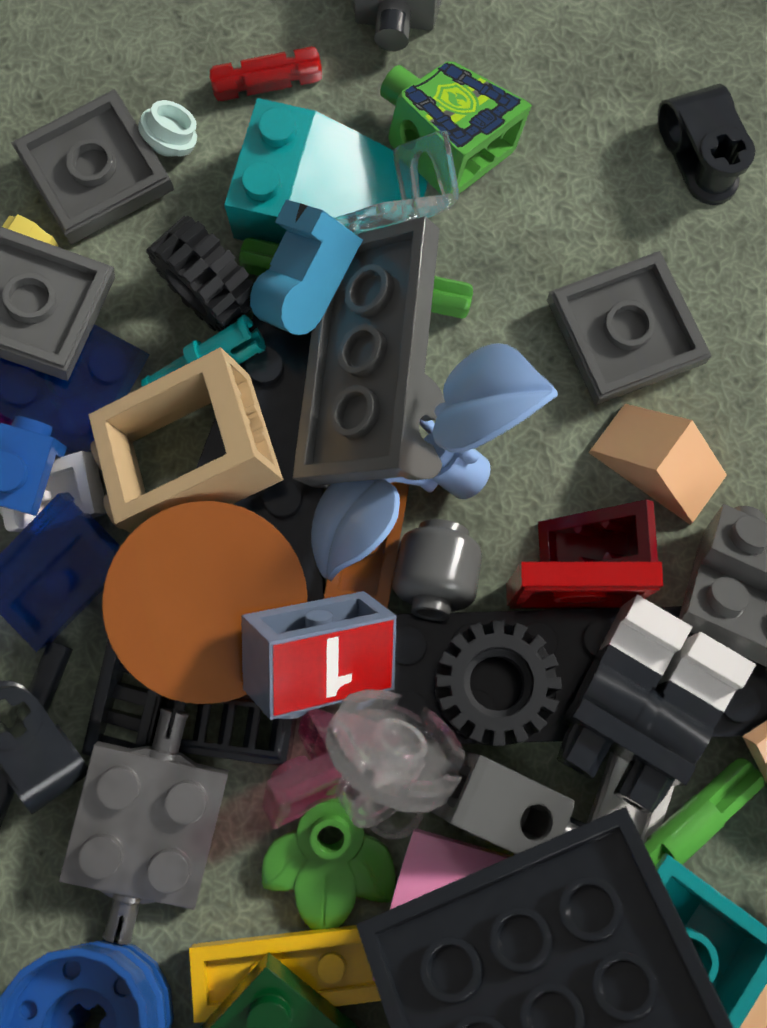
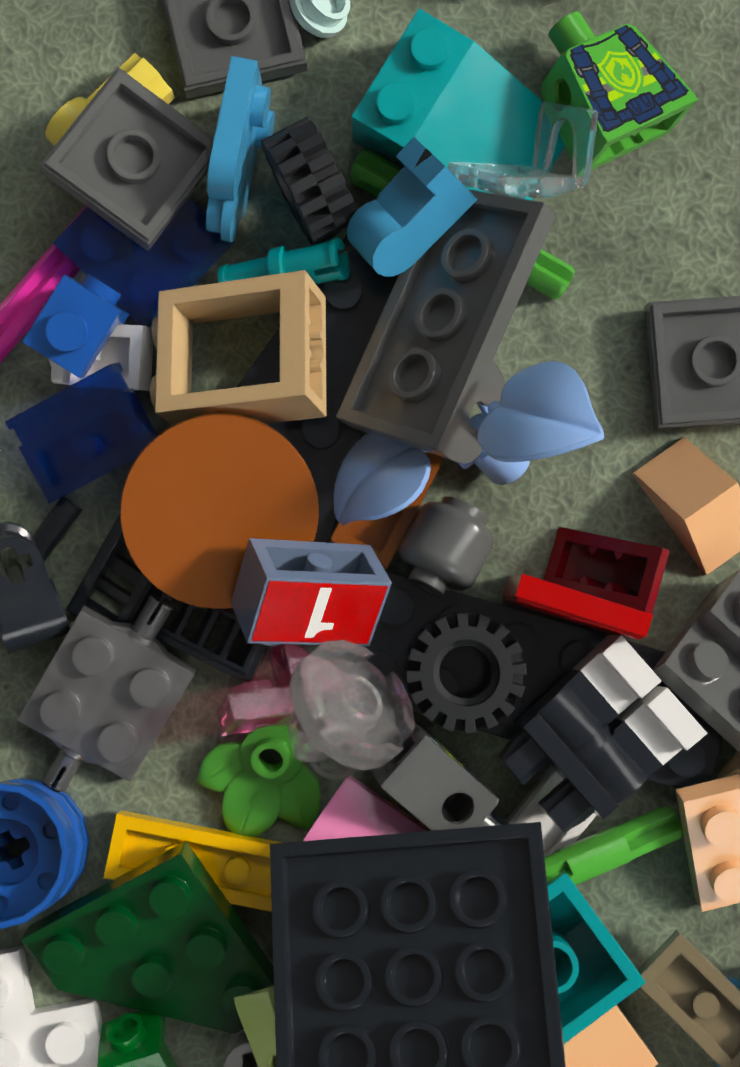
camera: 15 degrees right, 10 degrees up
(124, 260) = (240, 128): none -> dark azure plate

